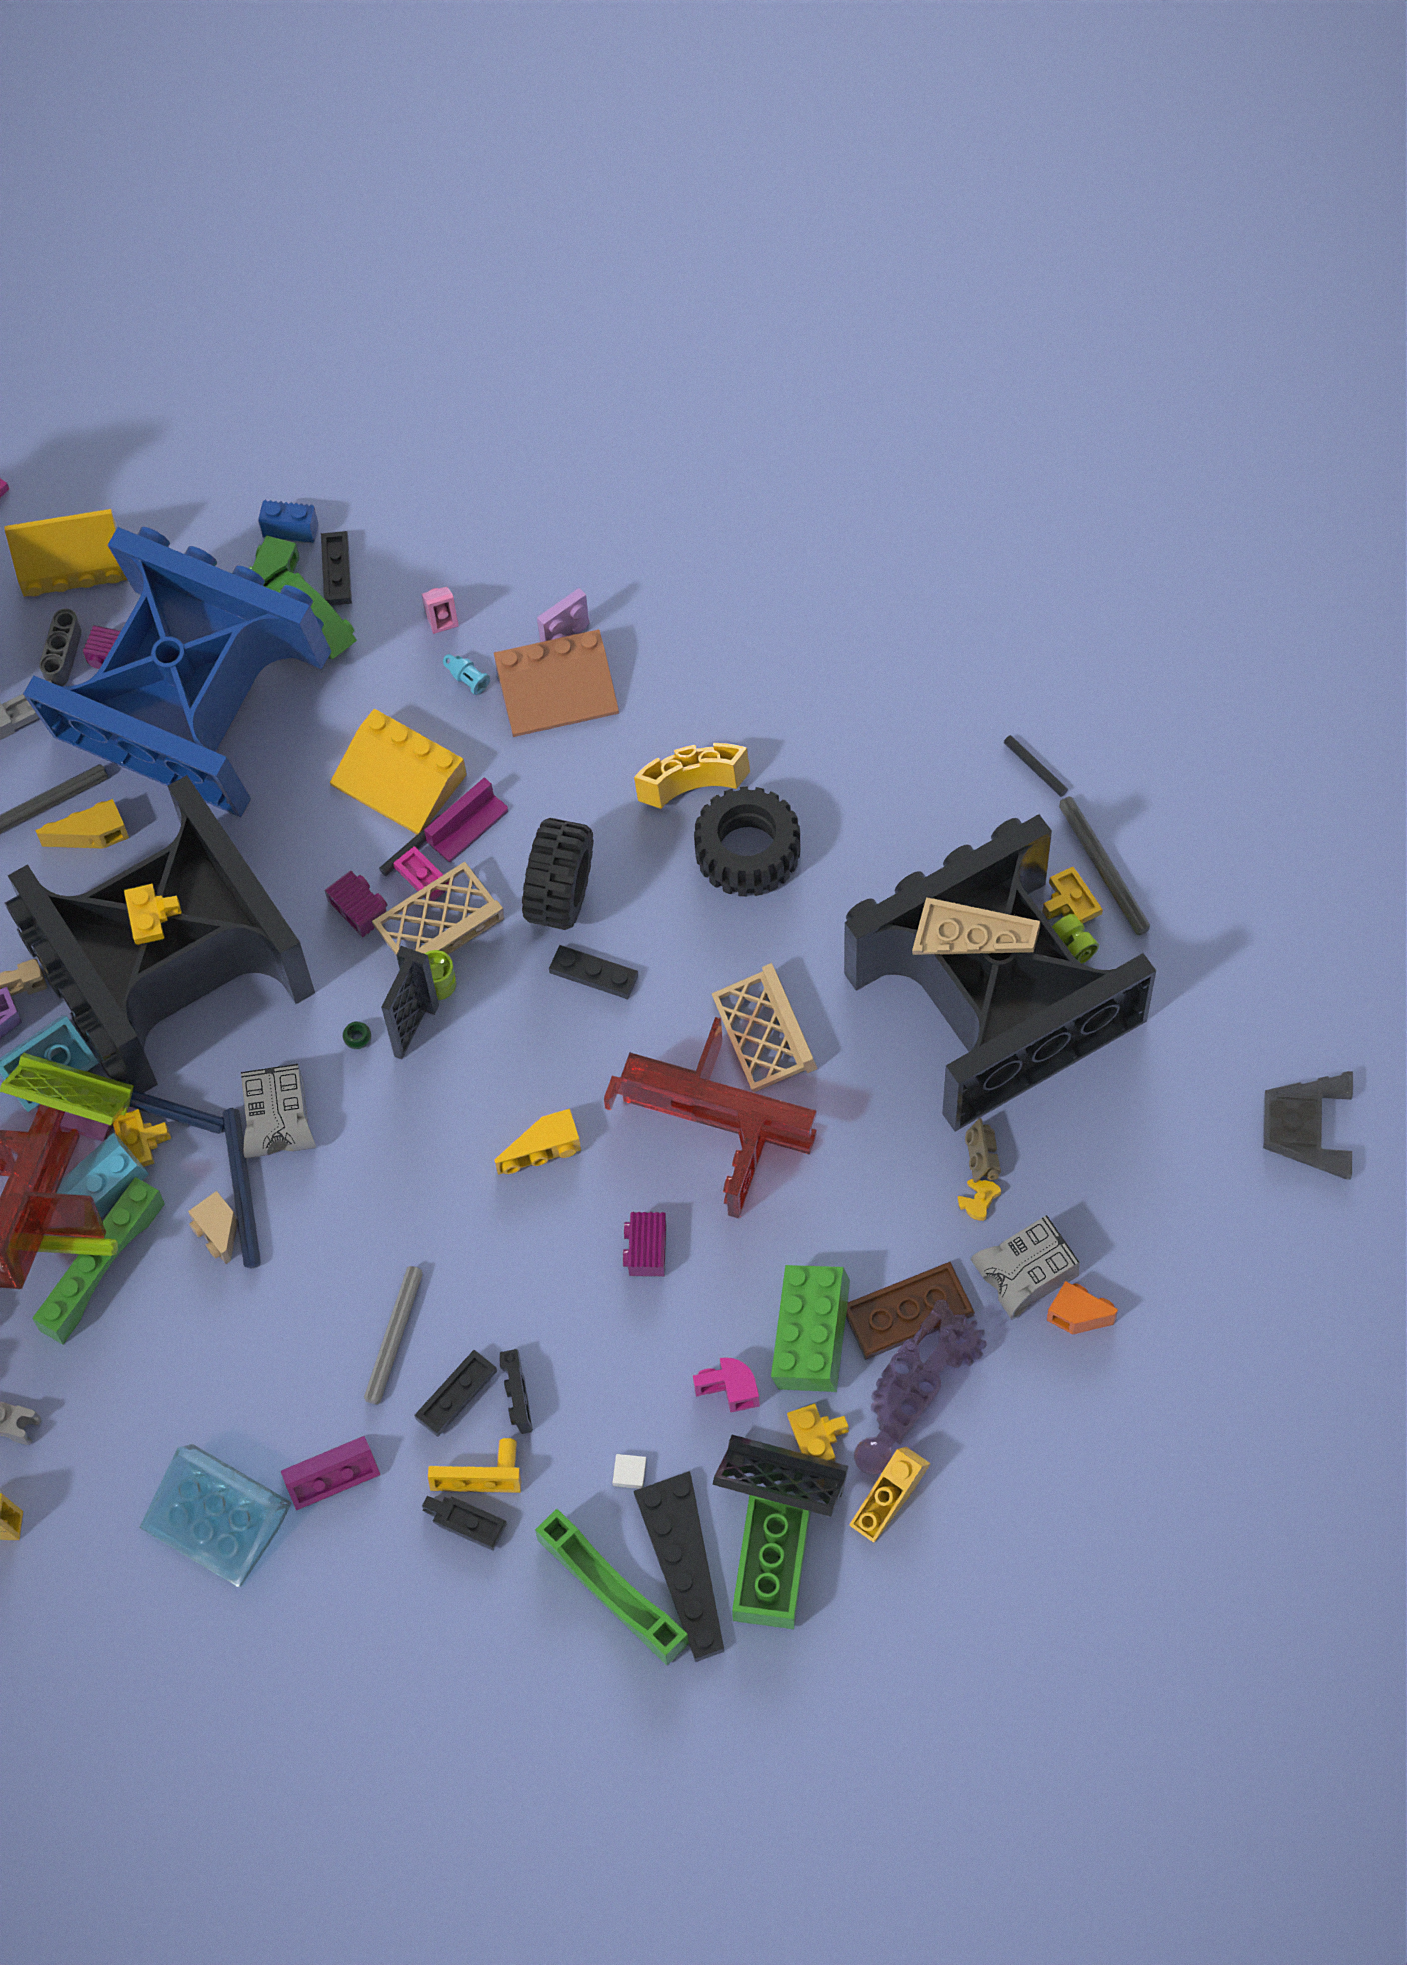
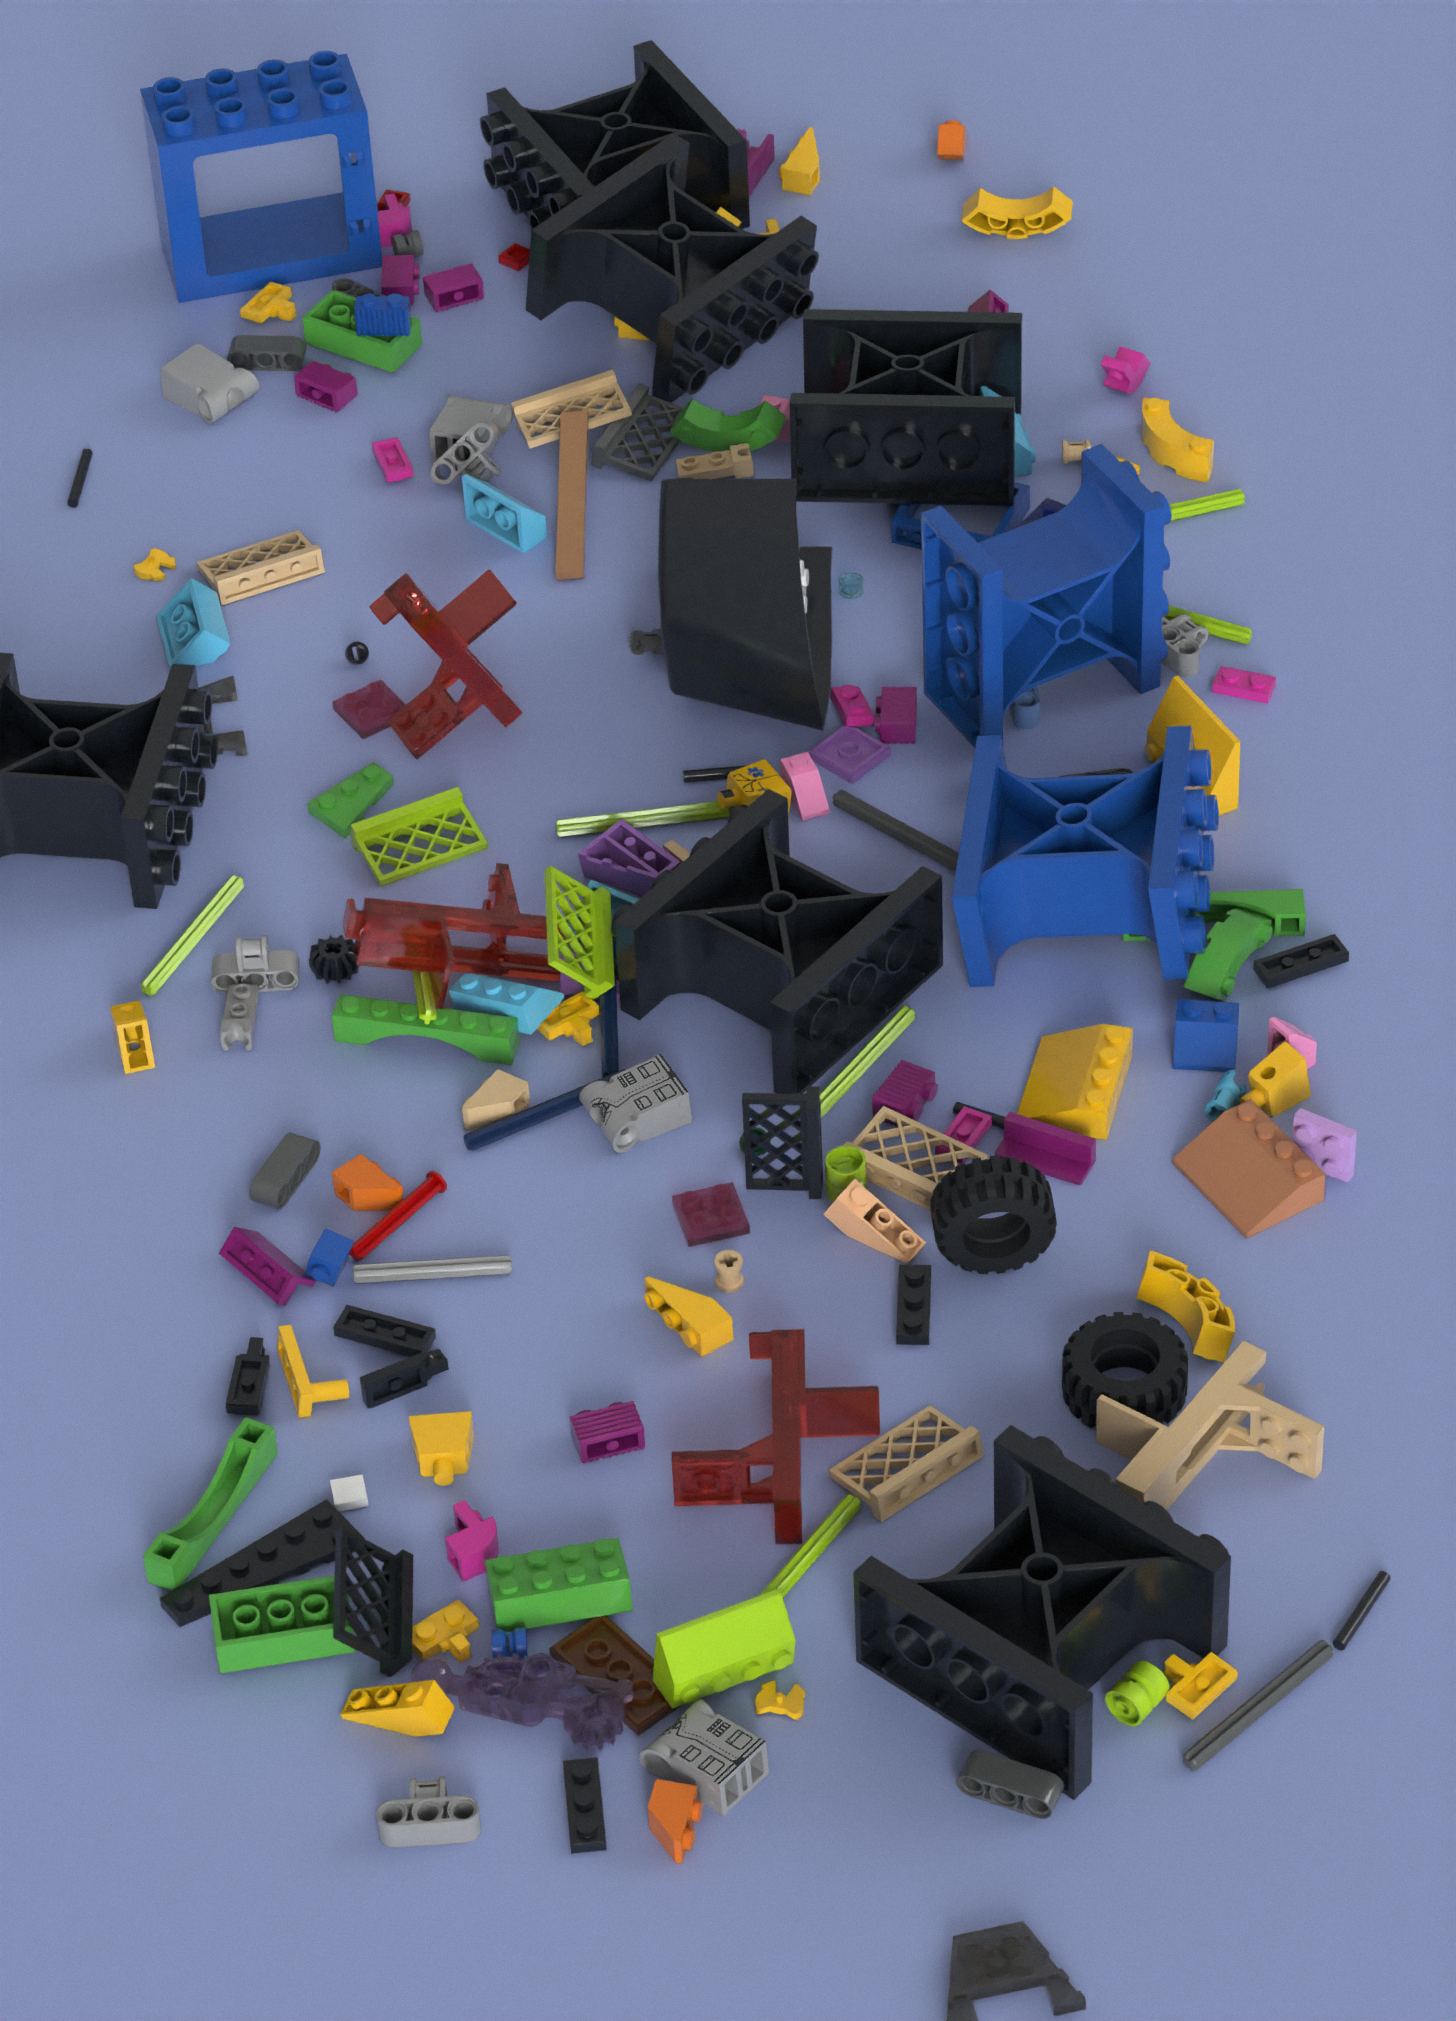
camera: 70 degrees right, 20 degrees down
(90, 828) = (888, 865): yellow slope -> none
(148, 912) = (771, 894): yellow hinge -> none
(214, 1514) = (195, 1193): clear light blue slope -> none
(221, 1426) = (284, 1170): none -> dark grey beam
(274, 1361) = (366, 1186): none -> orange slope
(288, 521) = (1335, 904): blue brick -> none
(304, 932) = (865, 1058): none -> lime axle
(318, 1346) = (398, 1215): none -> red axle
(351, 1415) = (329, 1257): none -> blue brick
(392, 663) = (1206, 1035): none -> blue slope
(423, 1094) = (710, 1214): none -> clear pink tile
(475, 629) = (1279, 1081): none -> yellow torso
(494, 973) = (873, 1224): none -> light nougat slope
(496, 1095) = (729, 1275): none -> tan bush
(611, 1380) = (442, 1444): none -> yellow torso
(845, 1144) = (814, 1545): none -> lime axle
(848, 831) = (1171, 1456): none -> tan piece
(855, 1385) = (517, 1642): none -> blue wheel
(936, 1221) = (723, 1649): none -> lime slope
(968, 930) = (1047, 1529): tan wing -> none
(980, 1140) = (822, 1685): dark tan hinge -> none
(1003, 1492) = (428, 1817): none -> light grey piece
(1037, 1375) = (584, 1805): none -> black plate
(1126, 1058) = (1010, 1784): none -> dark grey beam

